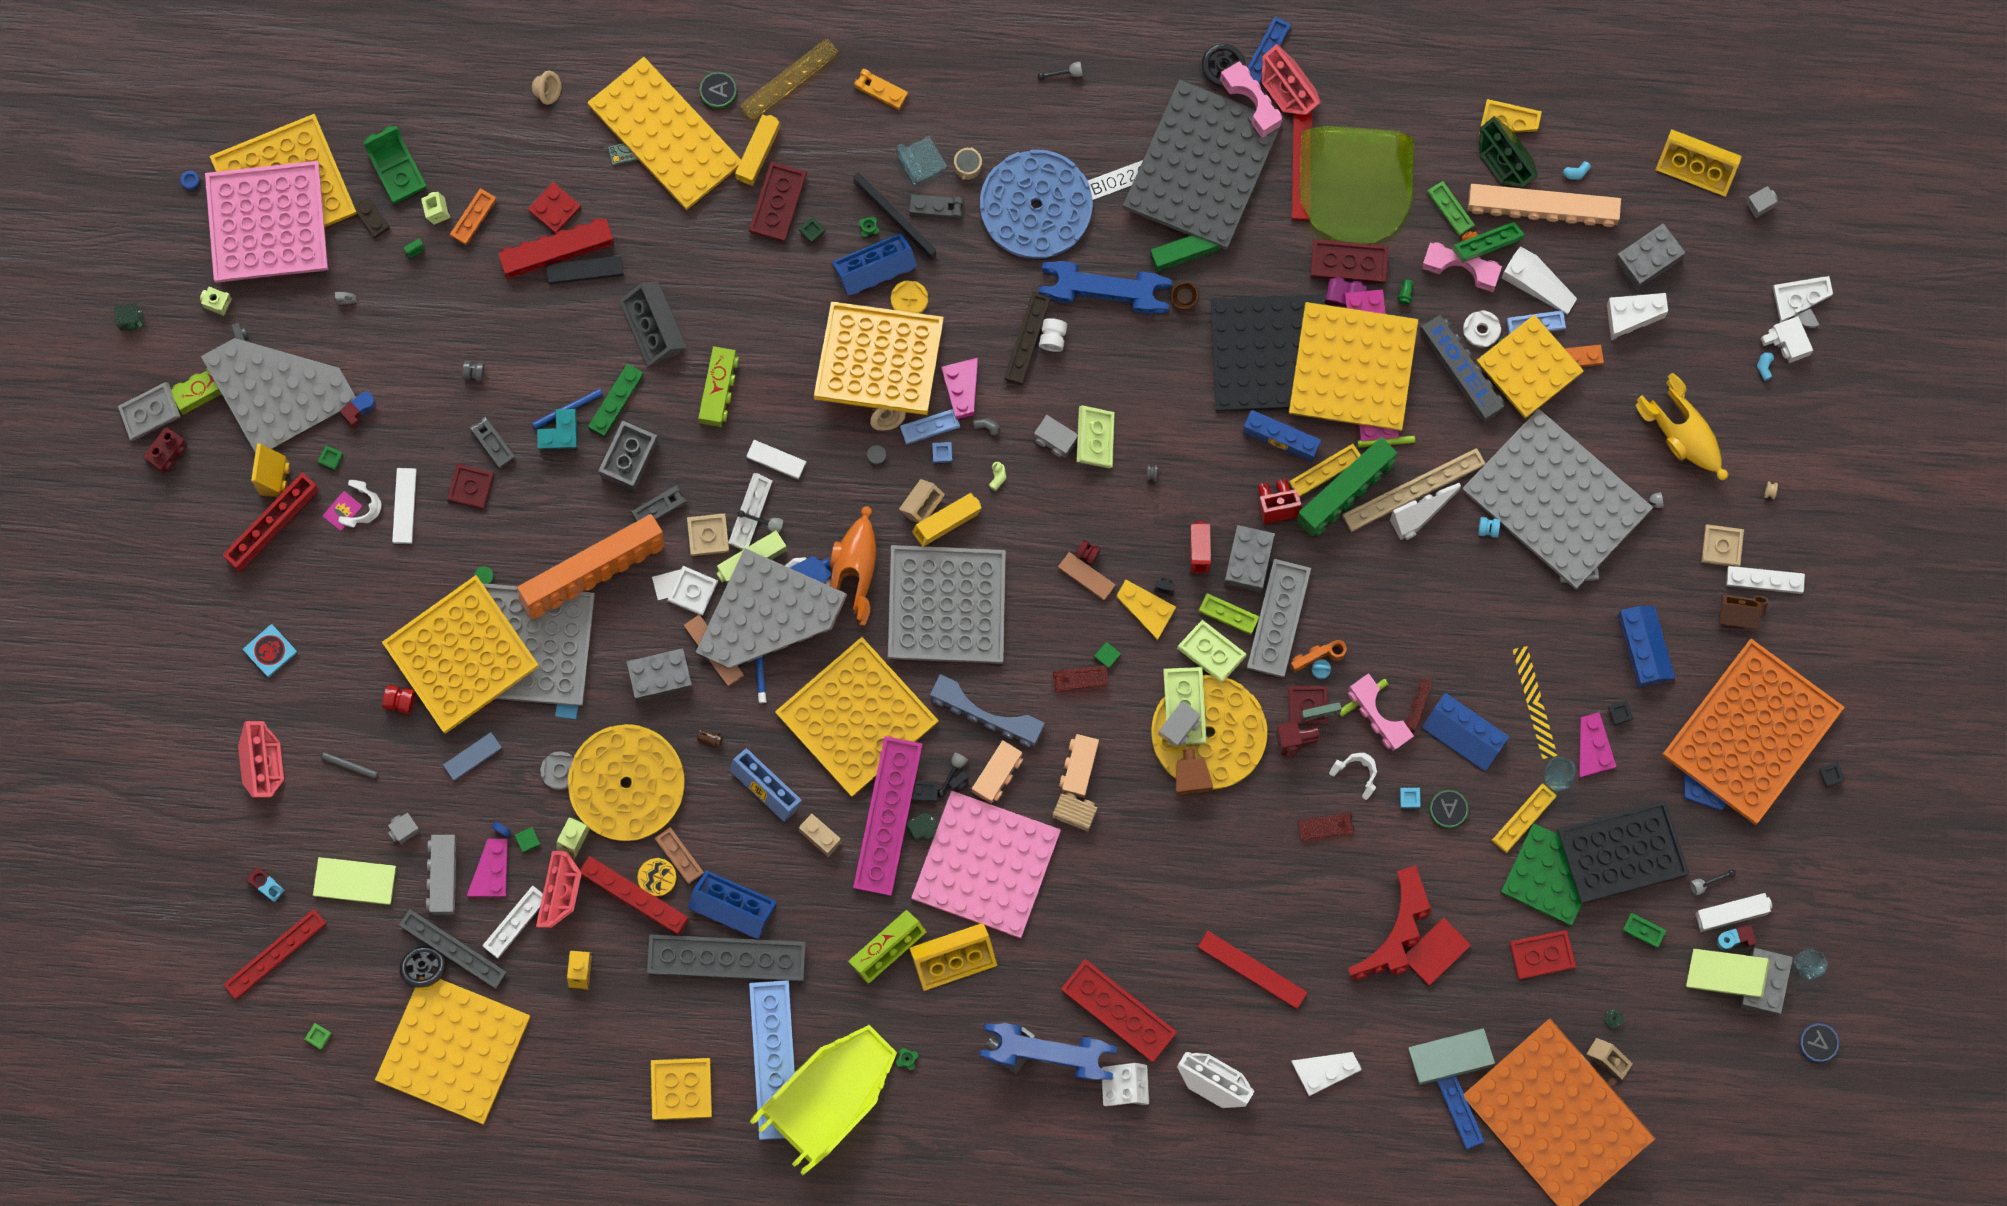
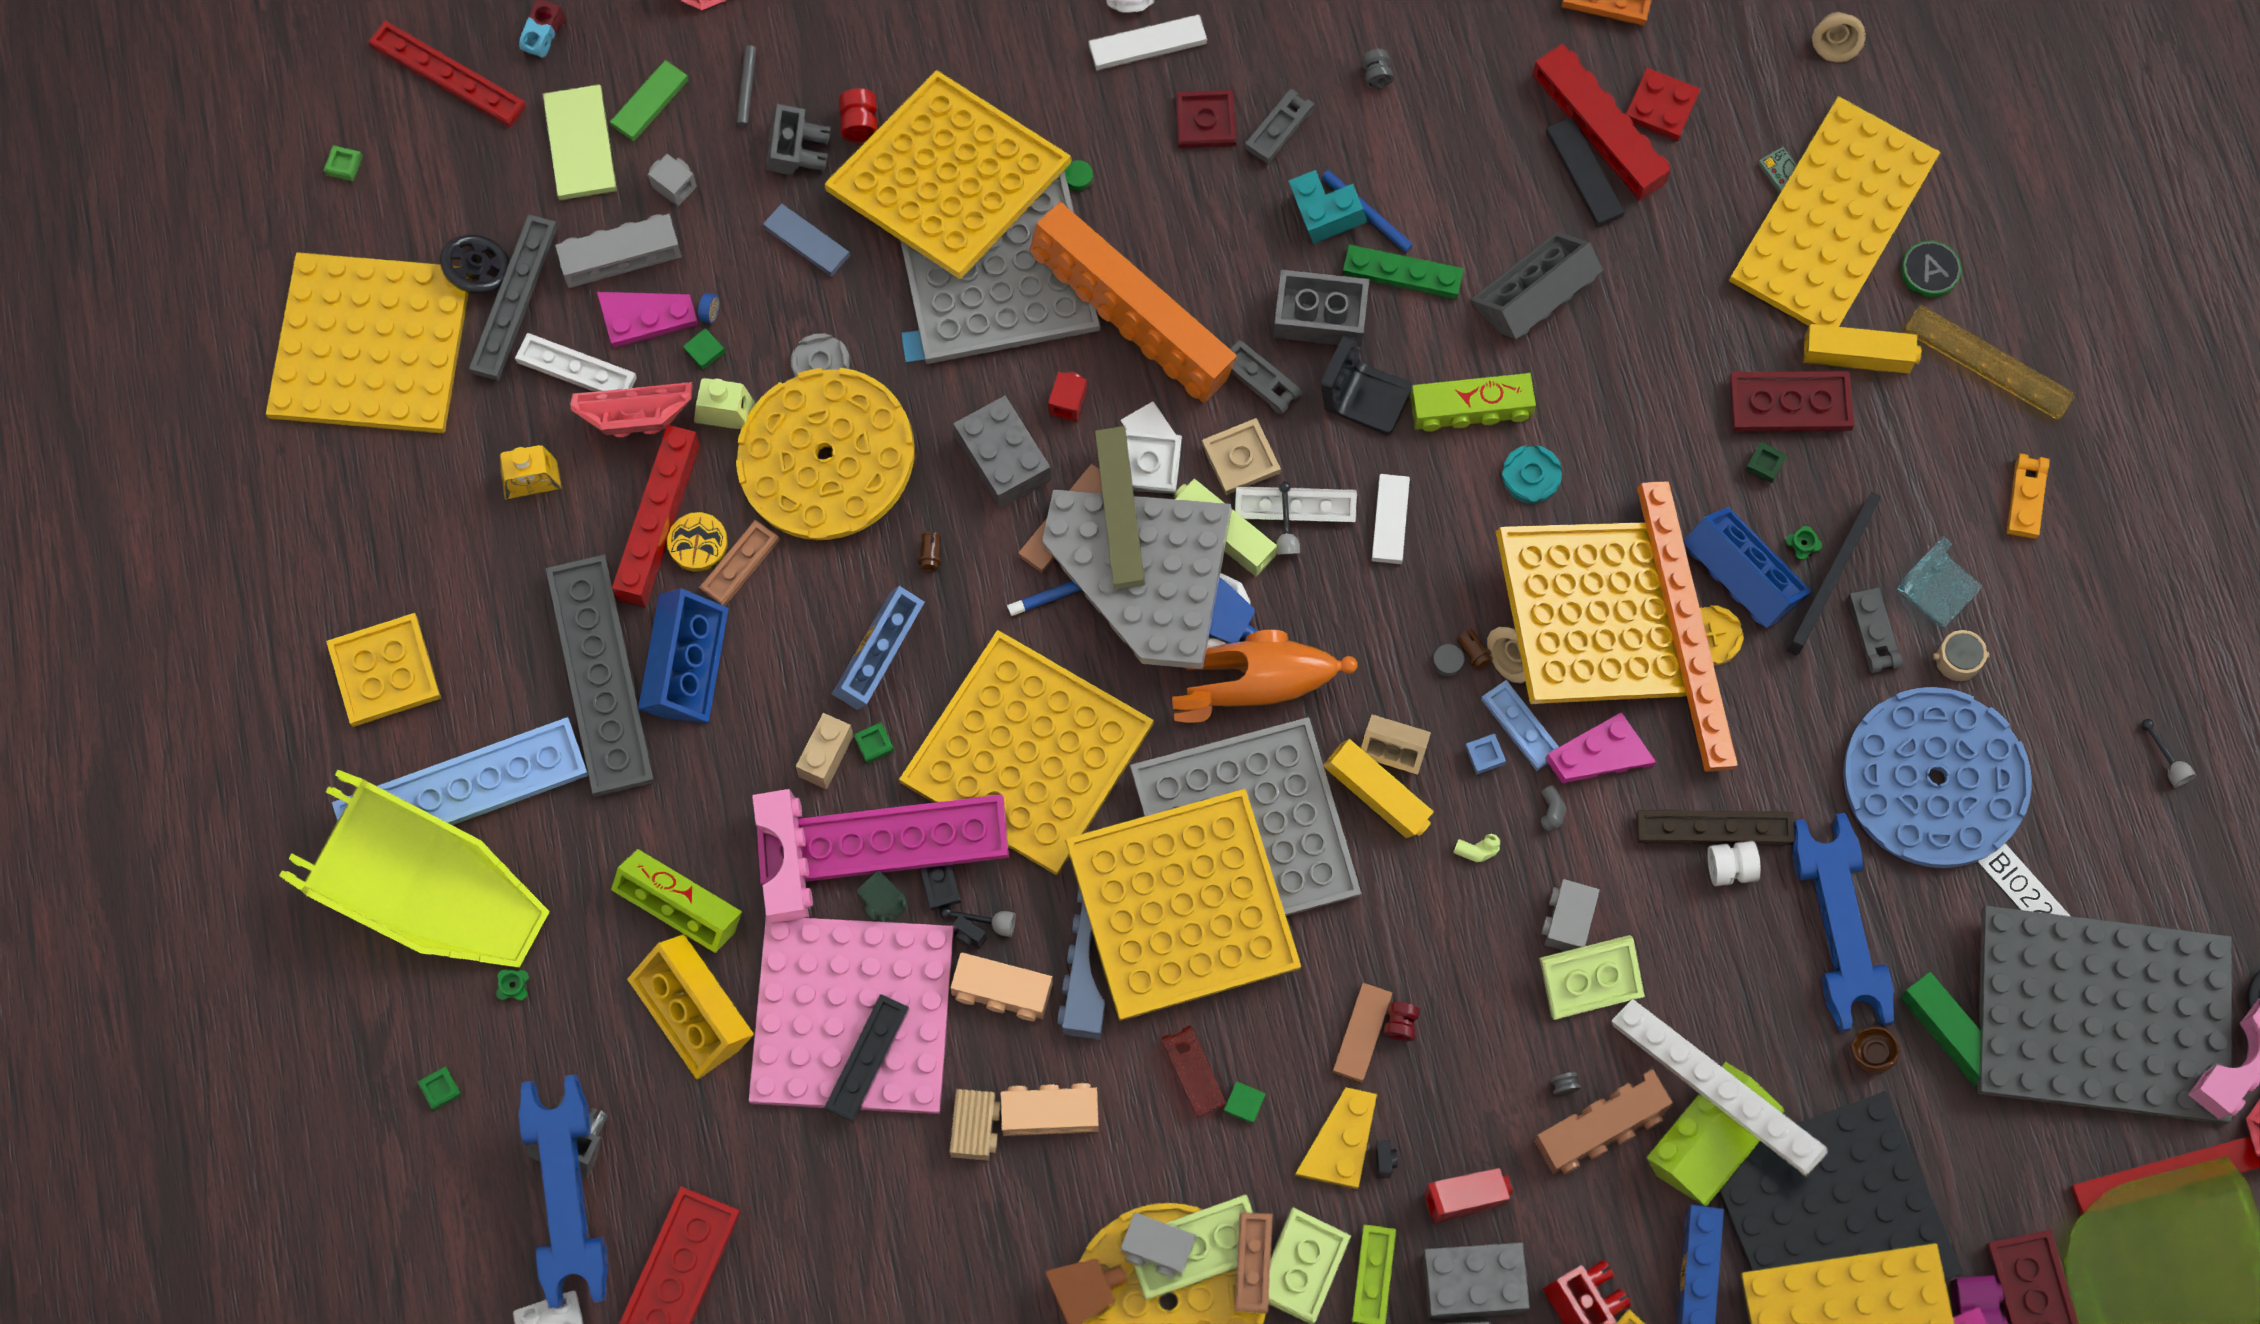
camera: 75 degrees right, 5 degrees down
(339, 829) = (649, 100): none -> bright green tile
(401, 748) = (785, 138): none -> dark grey brick
(634, 625) = (1067, 396): none -> red brick
(691, 447) = (1362, 391): none -> black piece
(725, 613) = (1119, 508): none -> olive tile
(774, 368) = (1532, 474): none -> teal tile
(821, 806) = (873, 743): none -> green tile
(856, 871) = (786, 893): none -> bright pink arch
(875, 437) = (1475, 650): none -> reddish brown pin
(900, 311) = (1687, 627): none -> plate
(957, 1117) = (439, 1088): none -> green tile
(982, 652) = (1182, 904): none -> yellow plate
(1018, 860) = (866, 1058): none -> black tile
(1181, 458) = (1604, 1124): none -> nougat wedge
(1183, 387) = (1720, 1087): none -> white plate
(1204, 676) = (1253, 1263): none -> nougat tile
(1207, 400) = (1705, 1146): none -> lime slope

